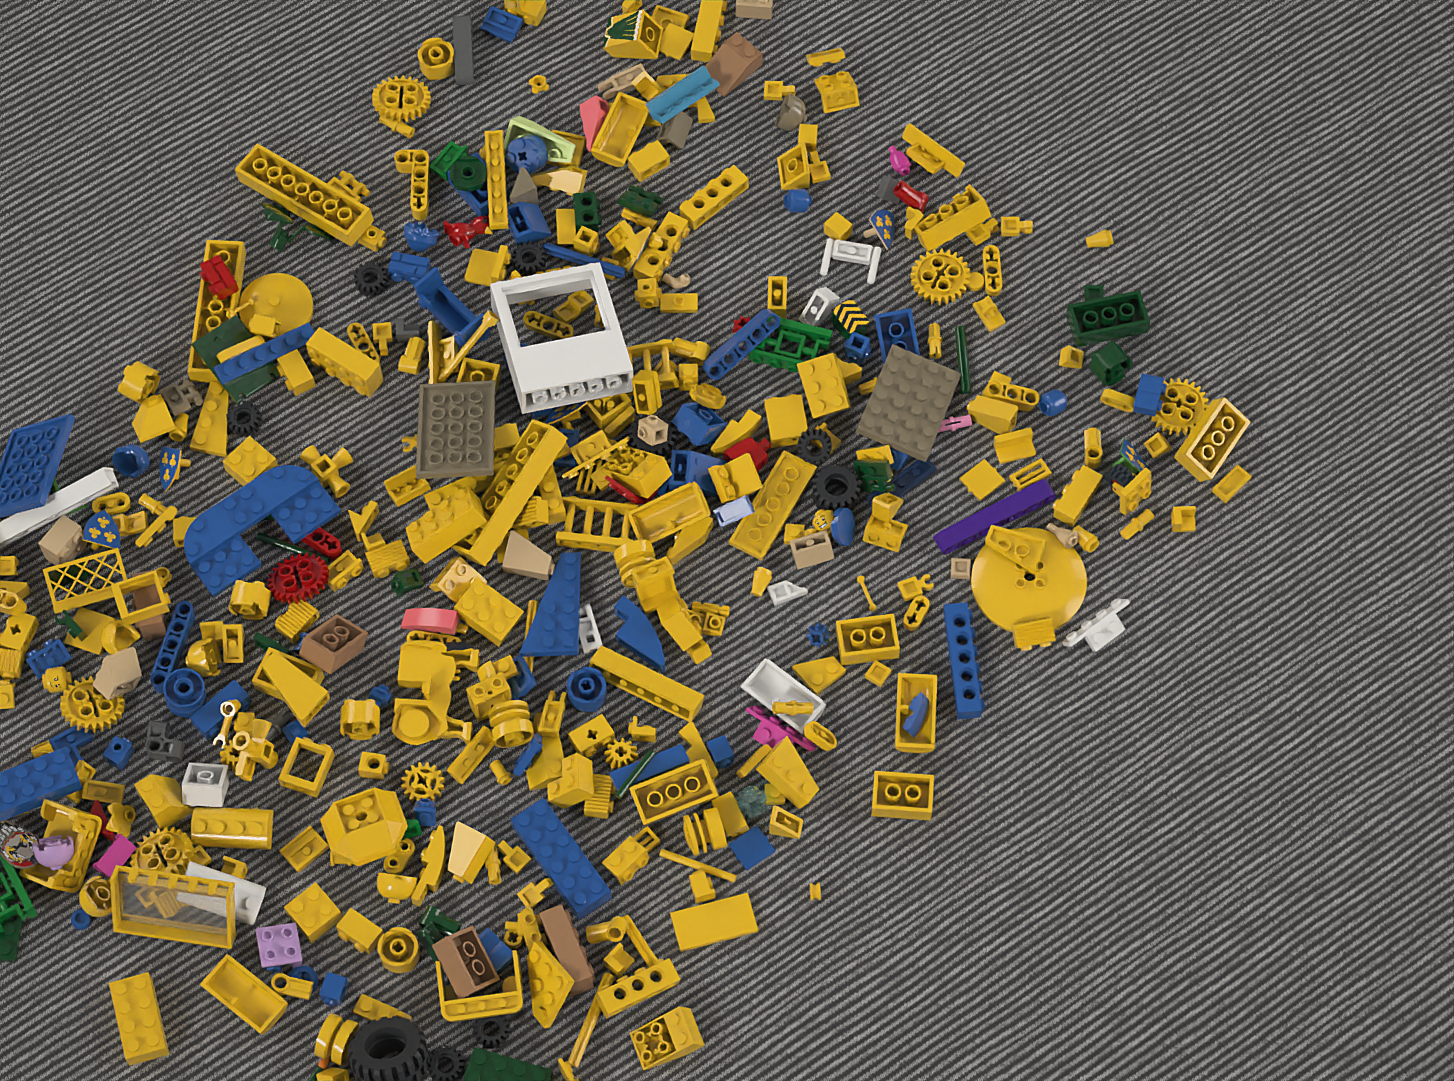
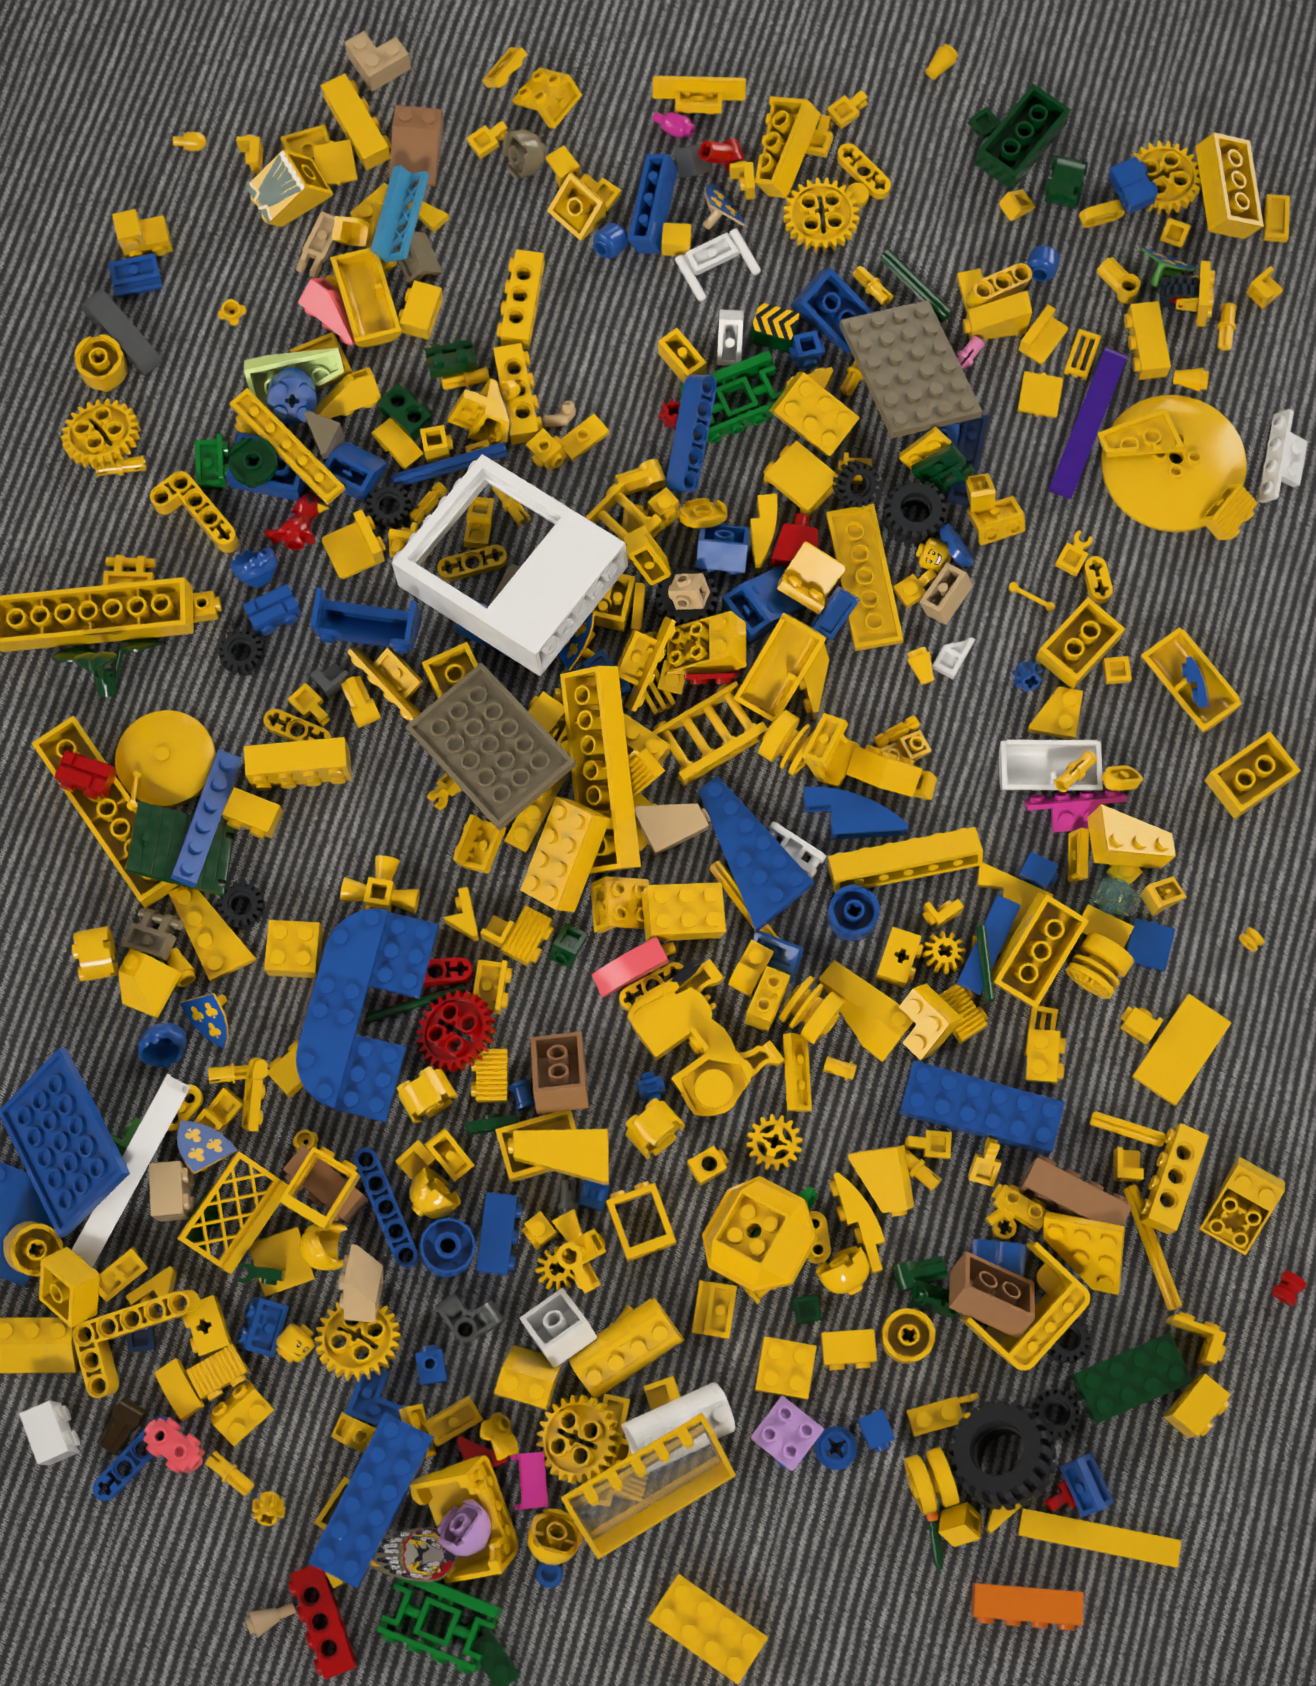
camera: 40 degrees left, 10 degrees up
(228, 709) = (516, 1231): yellow brick -> none
(240, 348) = (179, 834): yellow beam -> none
(245, 994) = (794, 1513): yellow container -> none
(265, 326) = (181, 790): yellow brick -> none
(294, 987) = (839, 1463): yellow piece -> none
(357, 892) = (807, 1309): none -> dark green tile
(425, 812) = (805, 1171): blue bracket -> none
(489, 319) = (424, 602): yellow piece -> none
(531, 749) = (858, 1028): blue plate -> none
(552, 715) = (843, 967): yellow hinge -> none
(606, 931) = (1099, 1139): yellow piece -> none
(697, 865) = (1115, 1004): yellow bar -> none
(841, 195) = (653, 203): none -> blue brick
(960, 568) = (1099, 501): tan tile -> none
(965, 707) = (1188, 606): blue brick -> none
(989, 314) = (903, 218): yellow hips -> none
(1067, 537) = (1173, 390): tan cone -> none

